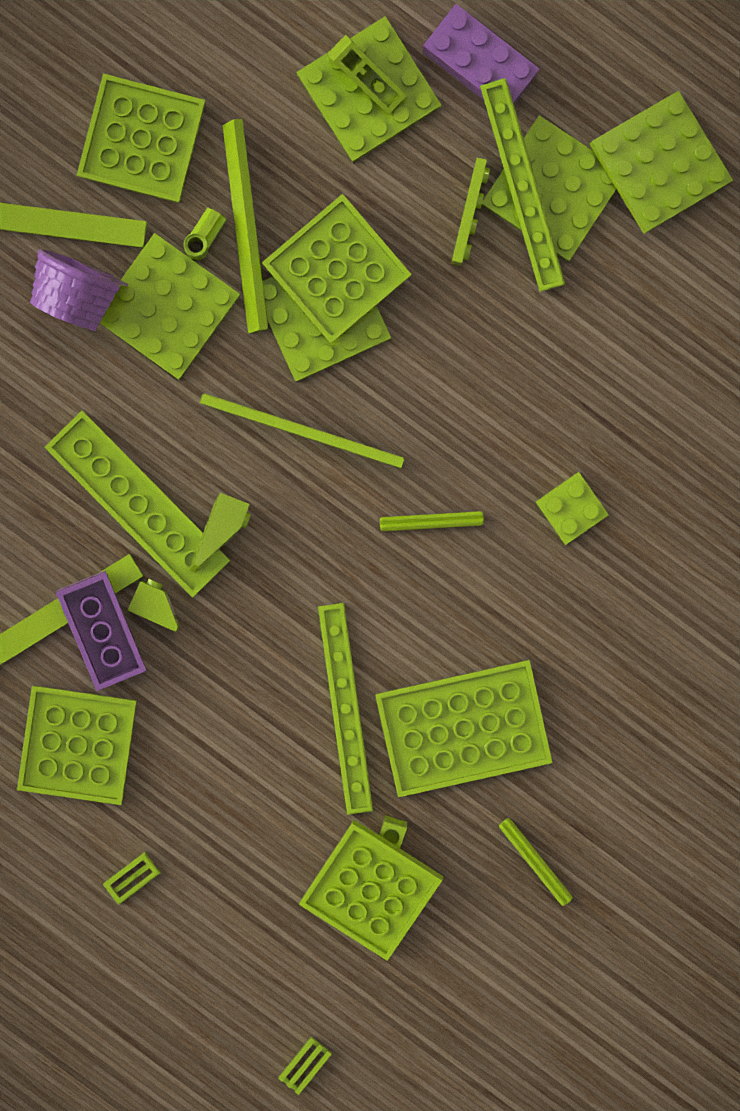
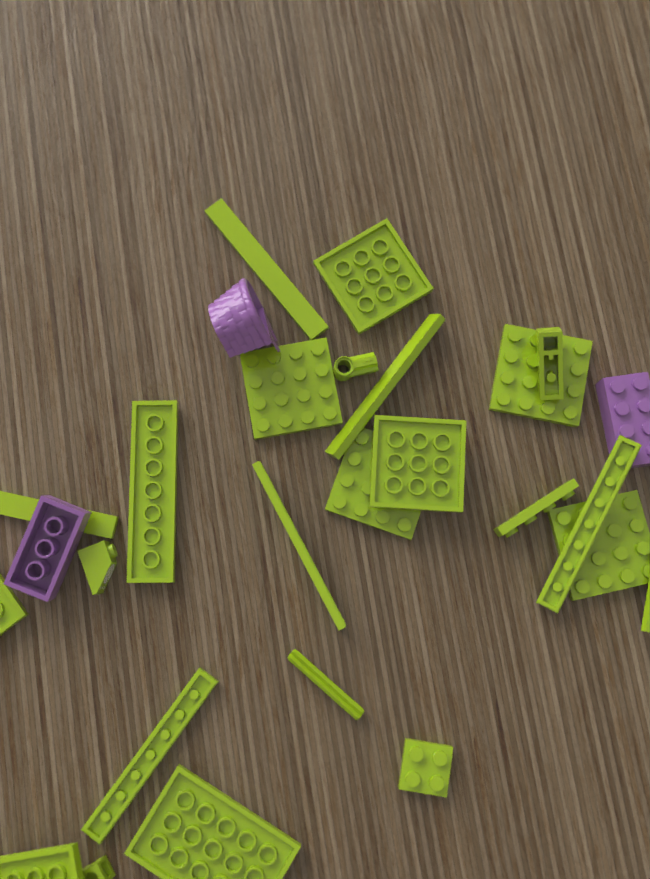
camera: 45 degrees right, 10 degrees down
(222, 525) = (190, 555): lime slope -> none

